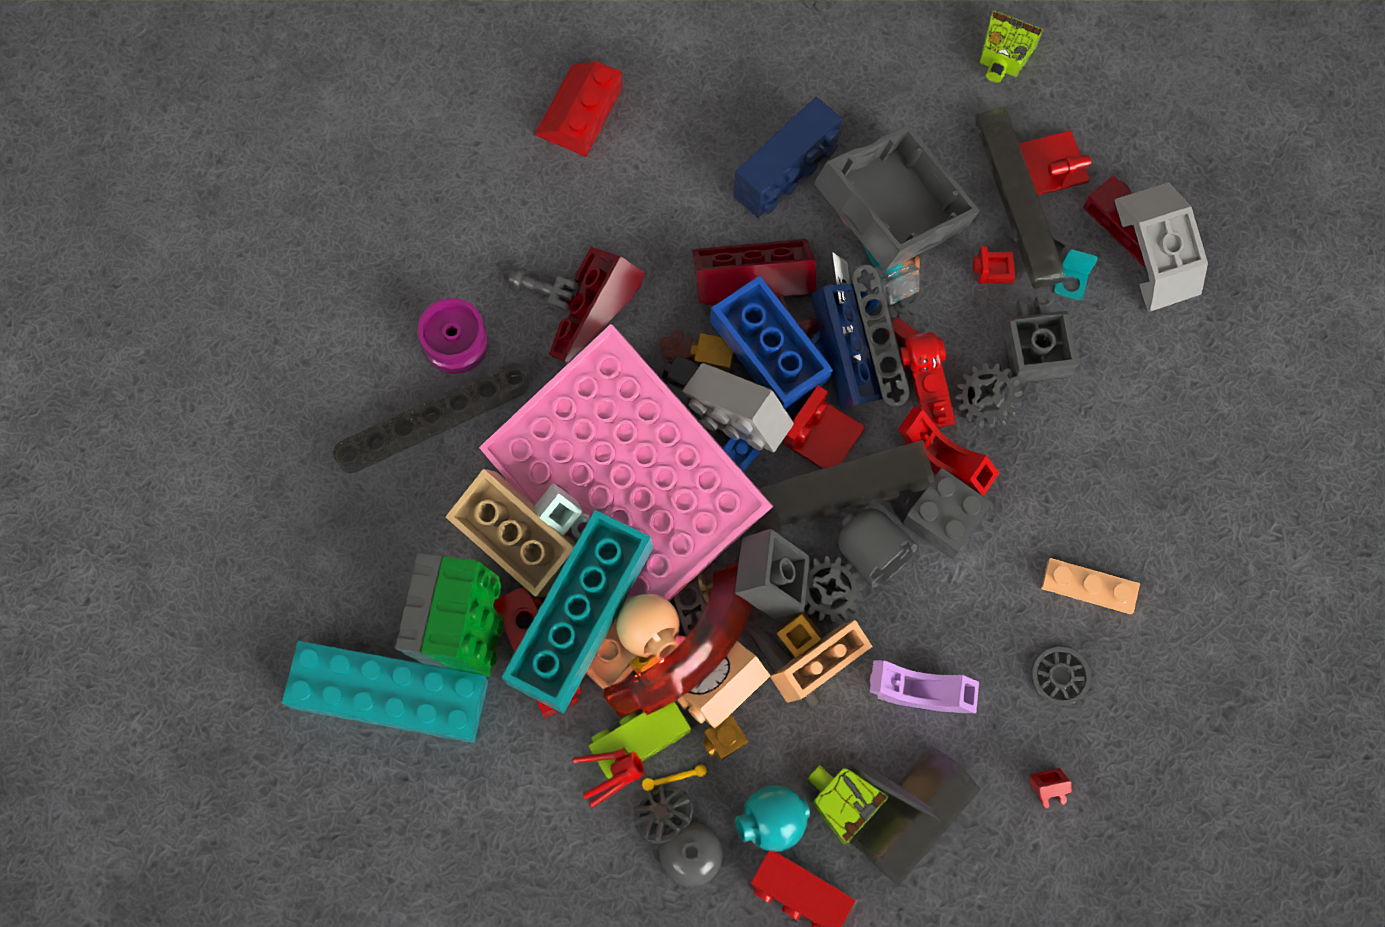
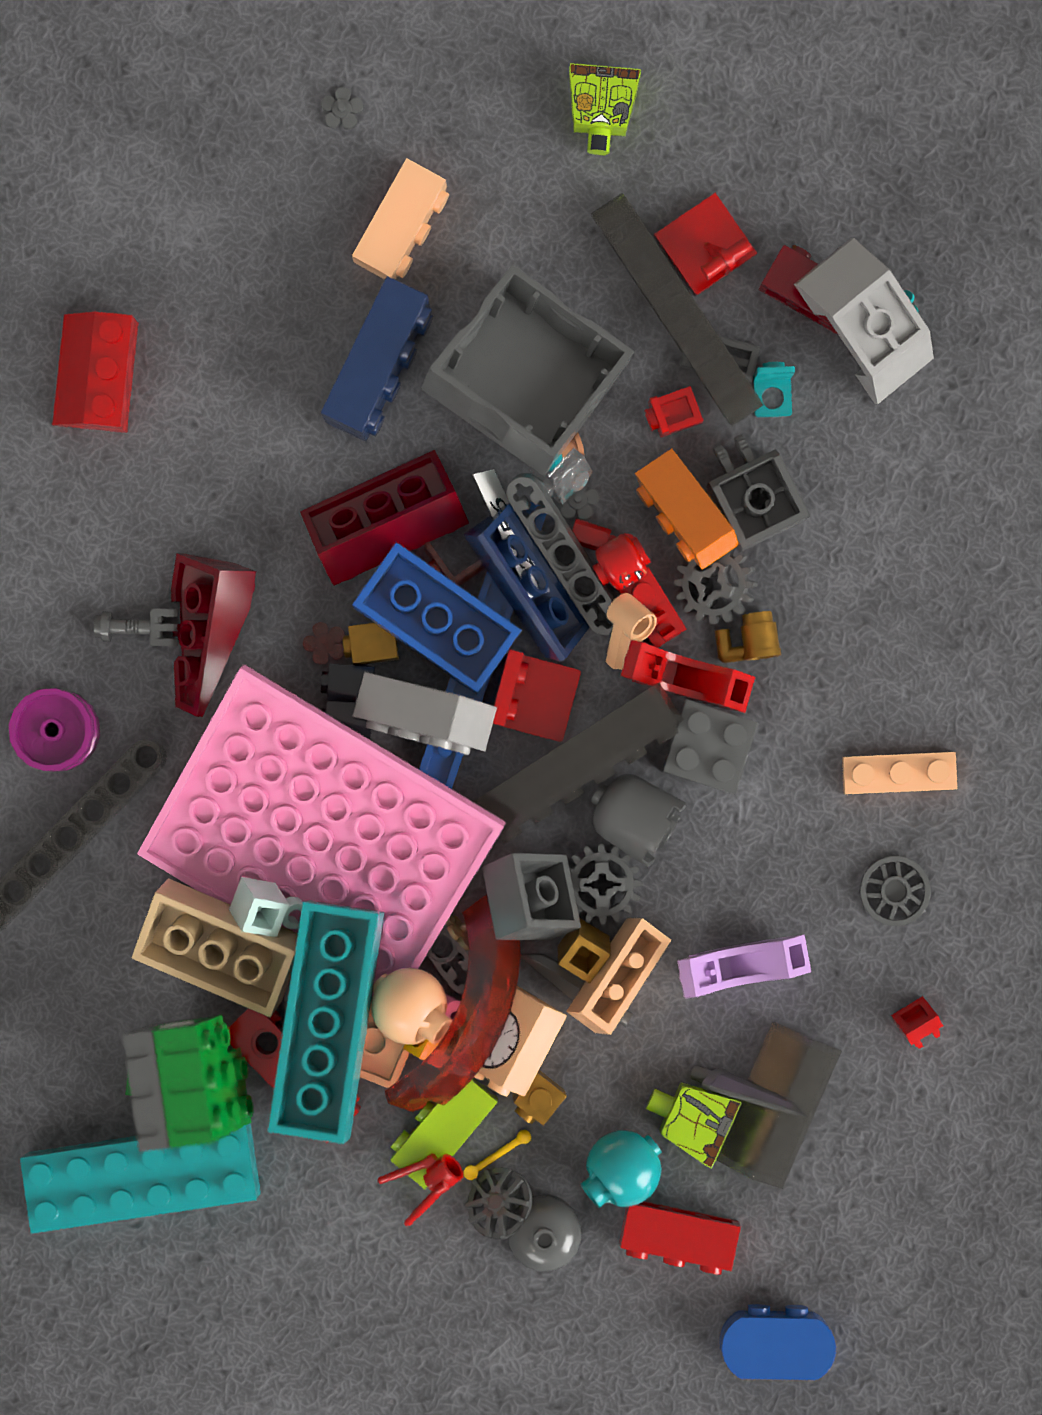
camera: 15 degrees left, 15 degrees up
(837, 74) = (401, 221): none -> light nougat brick
(915, 393) = (630, 622): none -> light nougat piece
(984, 332) = (685, 510): none -> orange brick
(1009, 449) = (758, 638): none -> pearl gold piece

